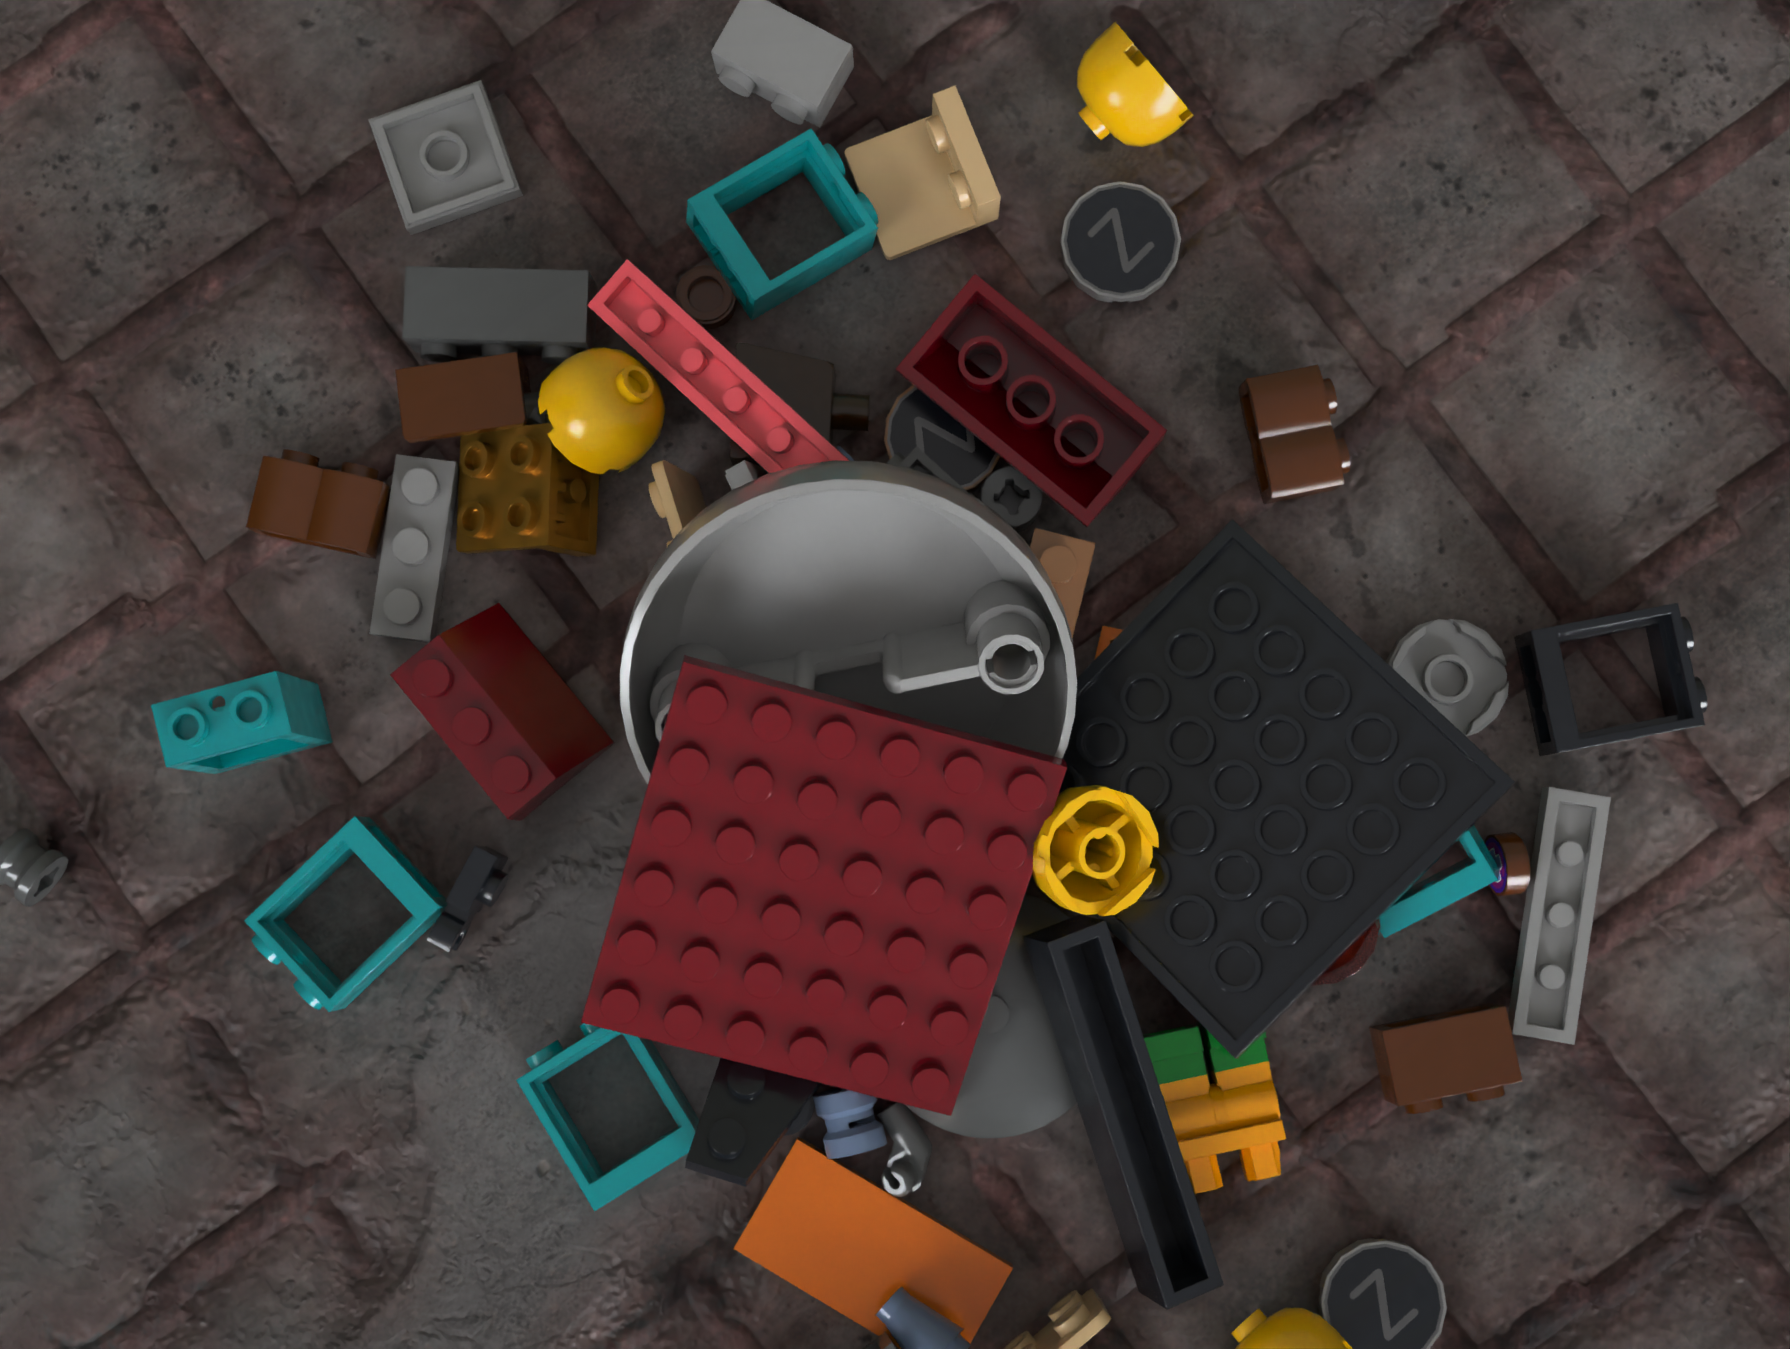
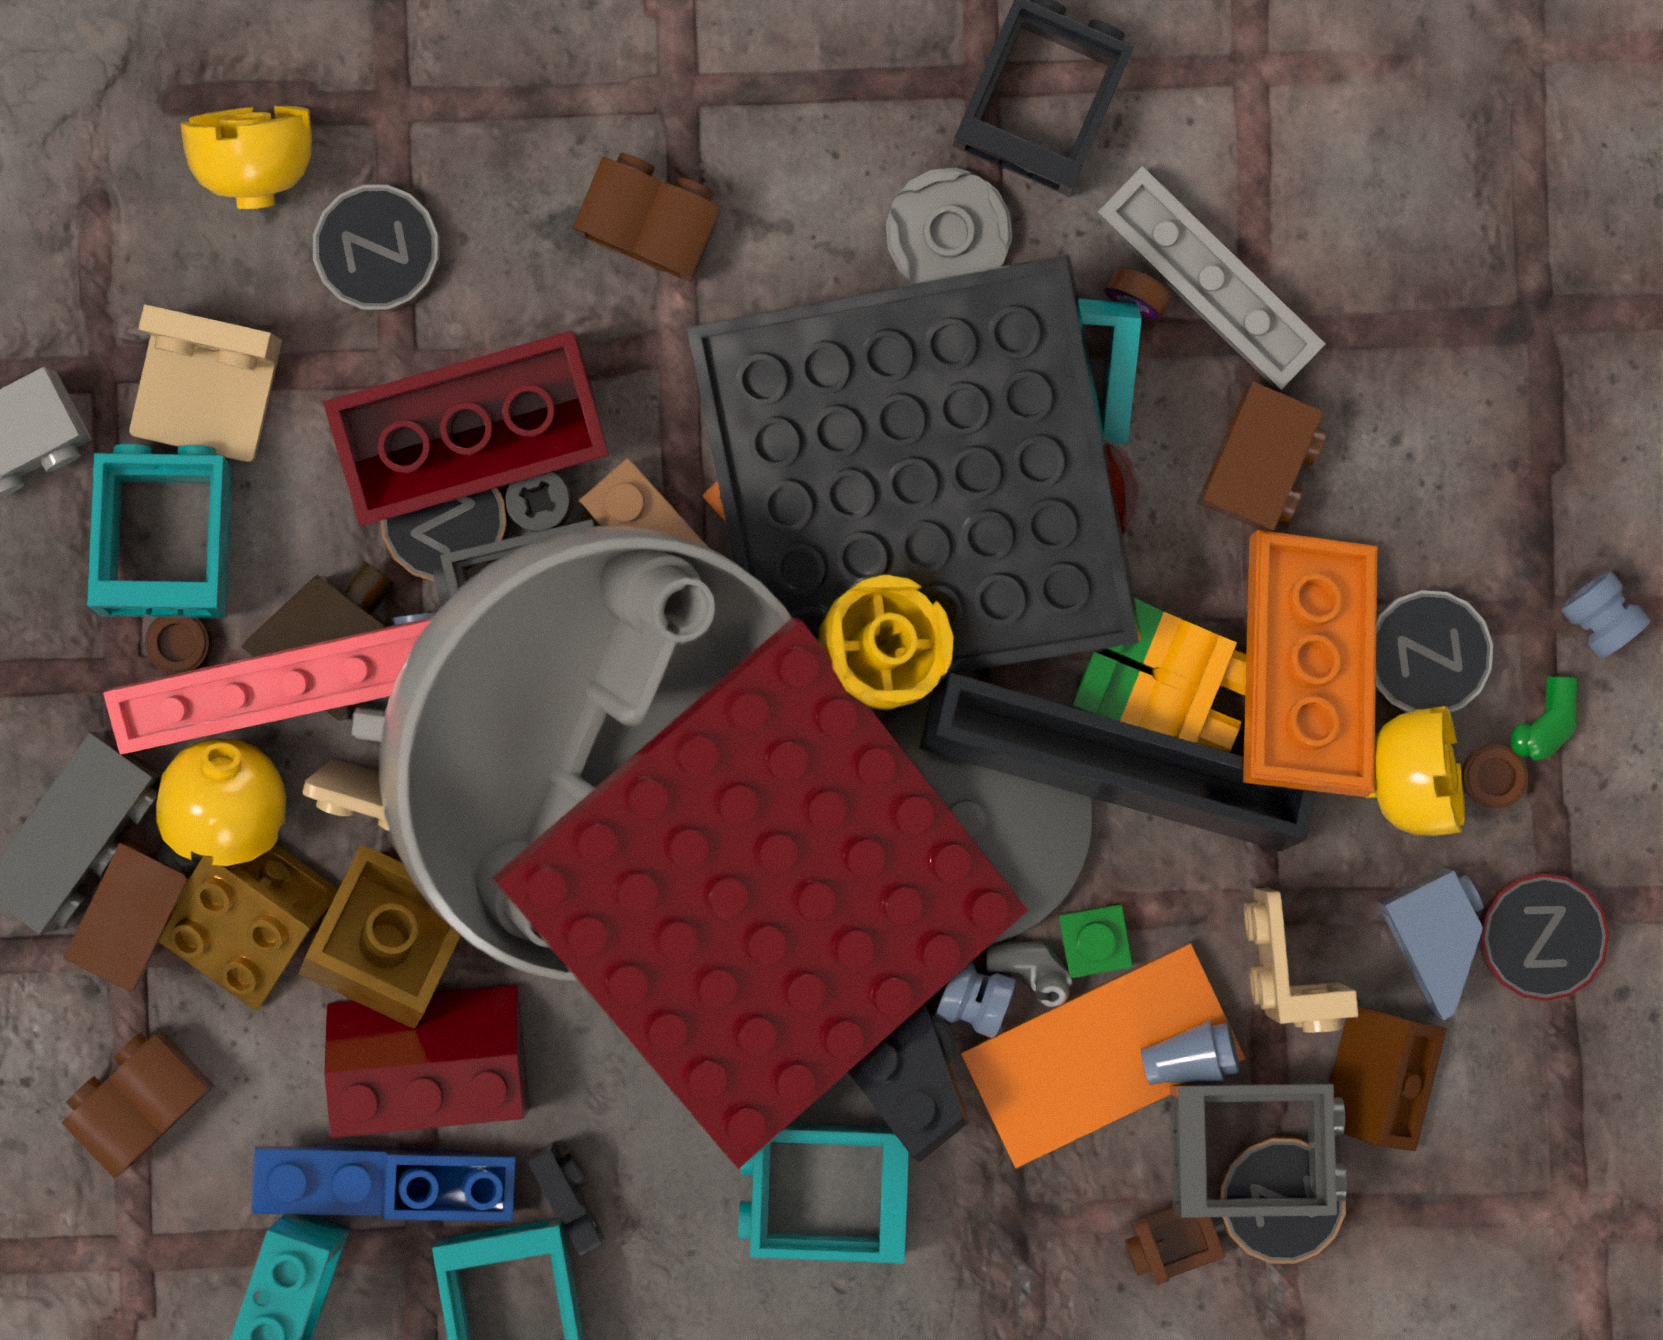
camera: 65 degrees left, 5 degrees up
(384, 742) = (383, 1182): none -> blue slope
(415, 549) = (230, 1044): light grey plate -> none
(574, 608) = (381, 940): none -> pearl gold brick
(962, 1186) = (1095, 940): none -> green plate
(1309, 1213) = (1311, 664): none -> orange tile

